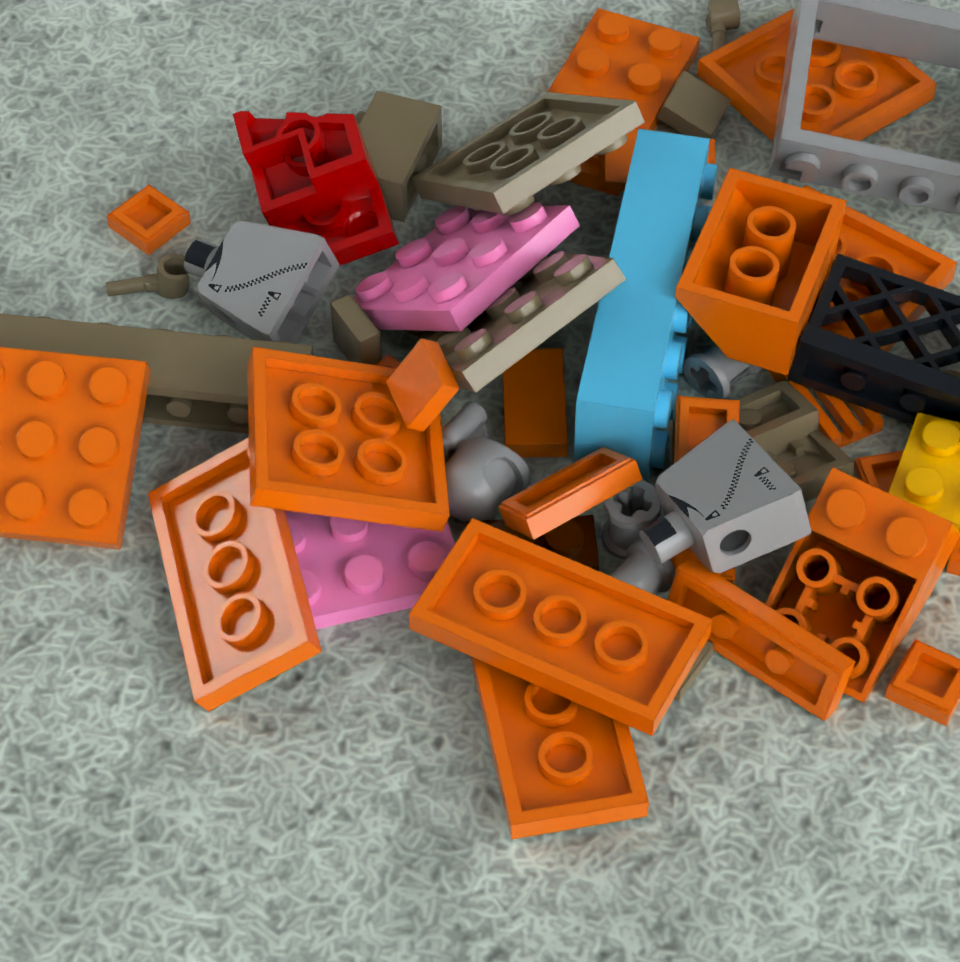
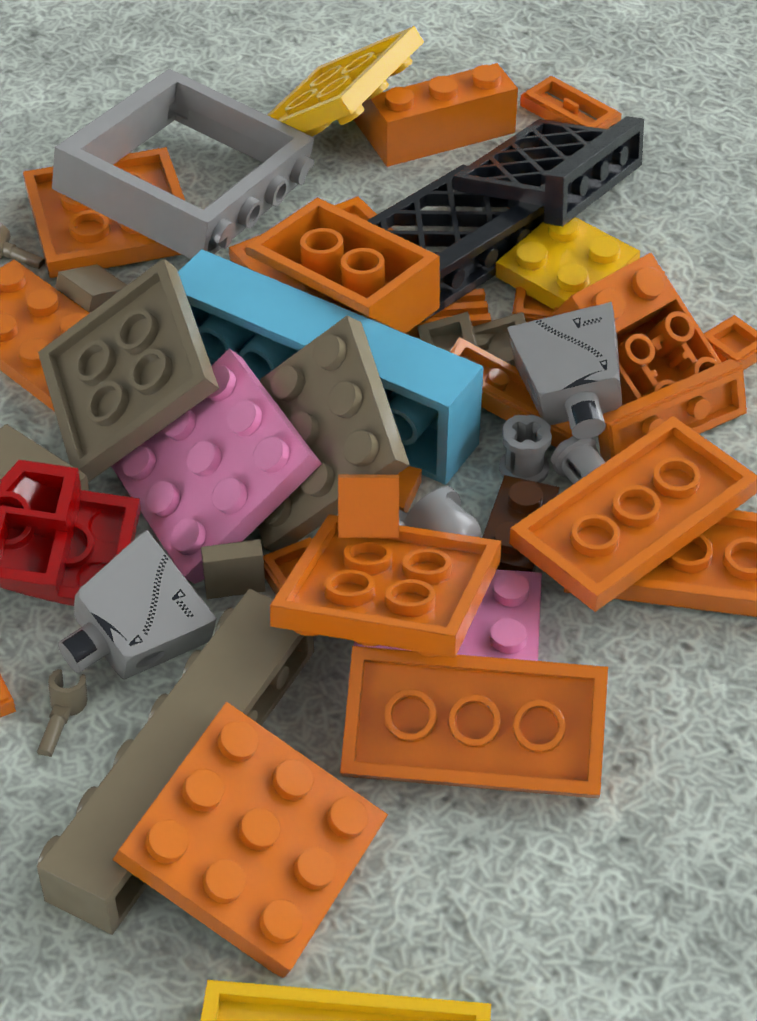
camera: 70 degrees left, 5 degrees down
(569, 492) = (504, 465): orange tile -> none

